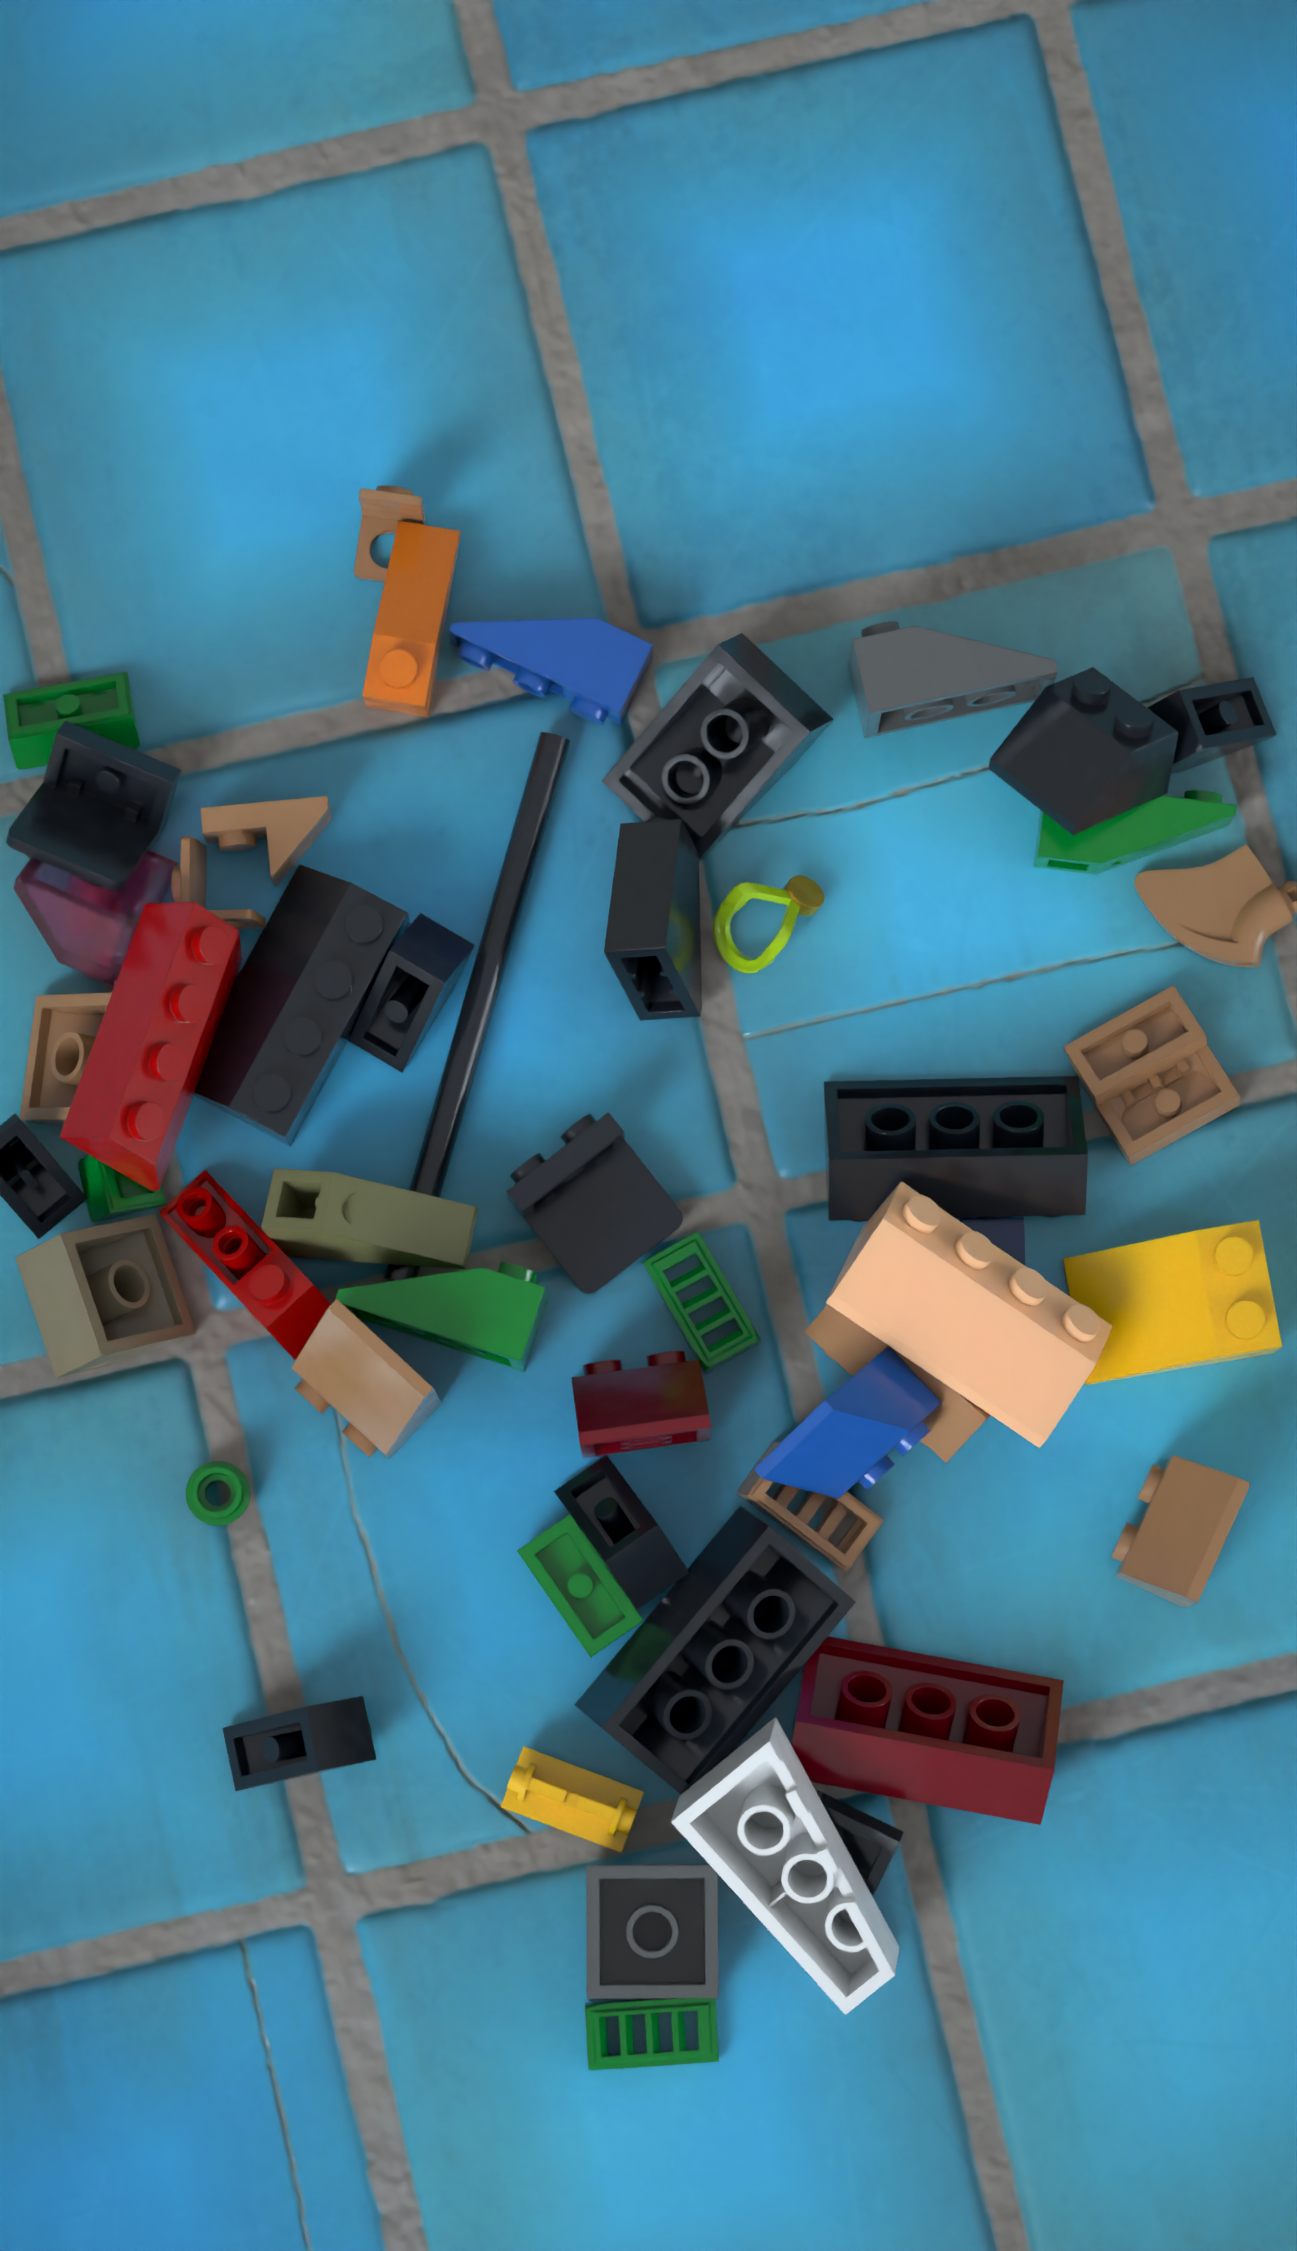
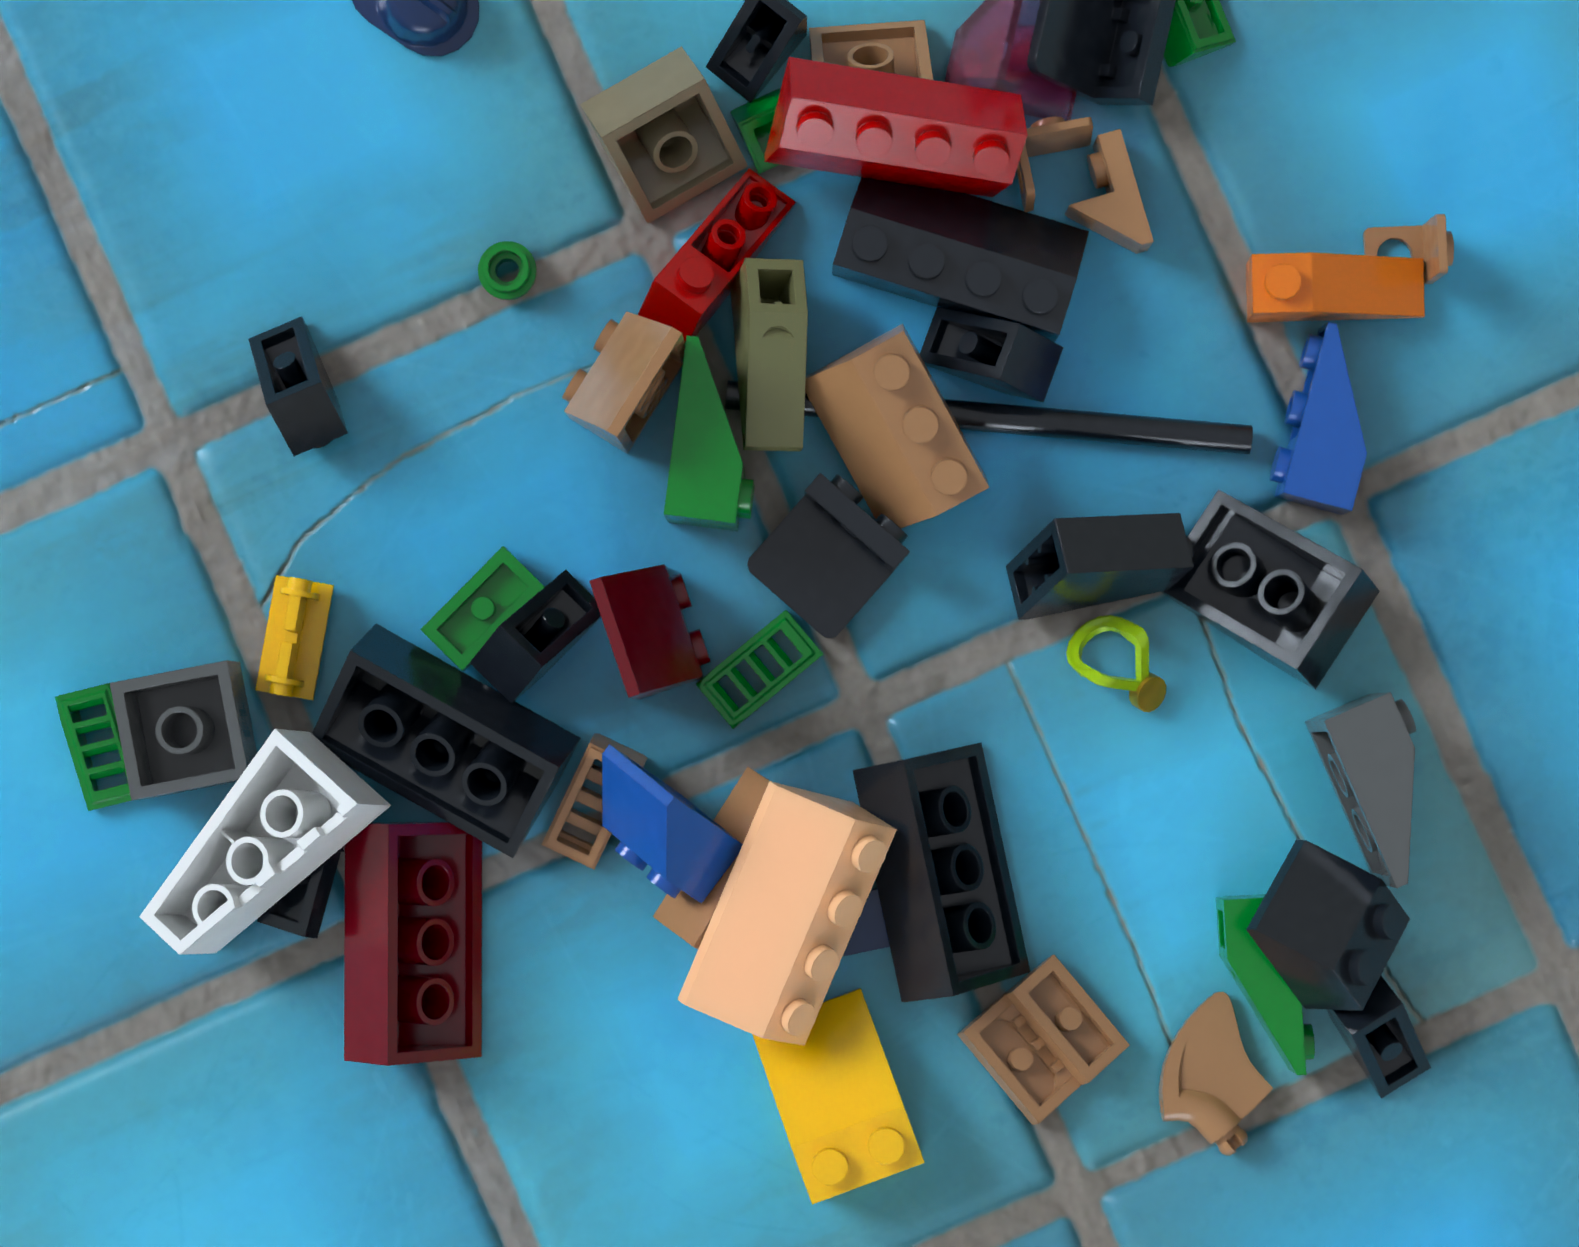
camera: 85 degrees right, 5 degrees up
(475, 1106) = (895, 430): none -> medium nougat slope
(1179, 1530) = (629, 1139): medium nougat slope -> none

